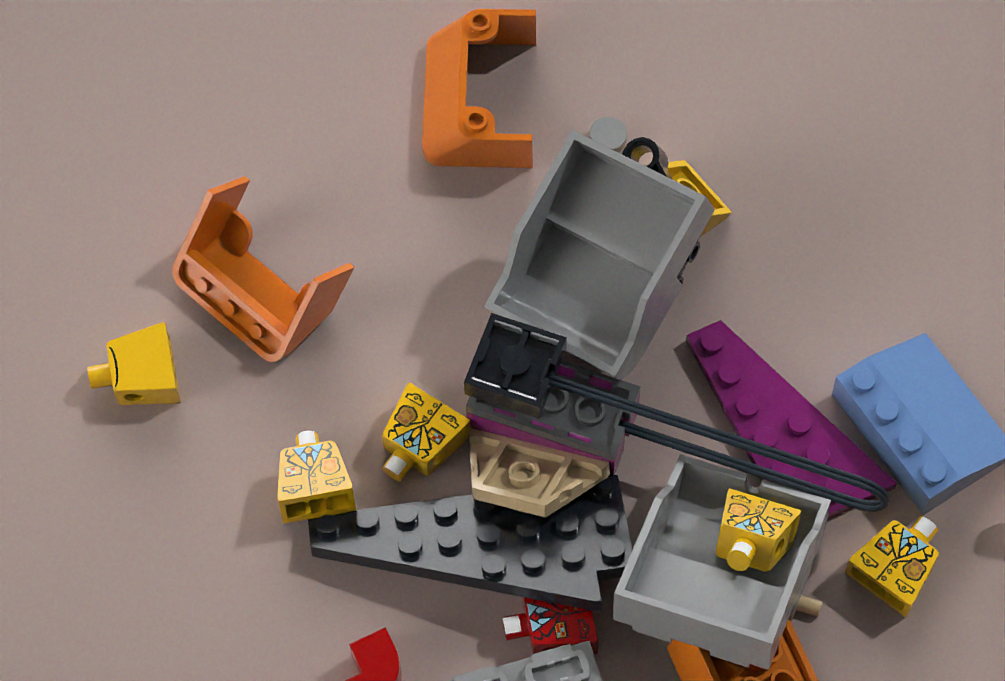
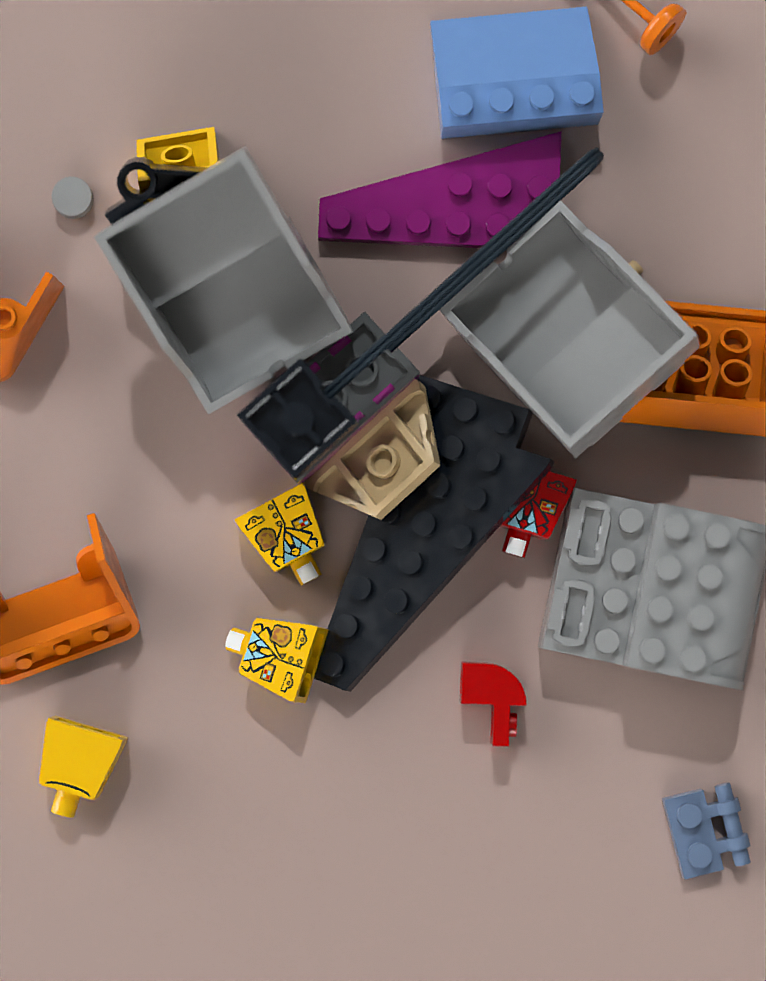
camera: 65 degrees left, 20 degrees up
(755, 531) = (552, 287): yellow torso -> none
(896, 563) = (637, 173): yellow torso -> none

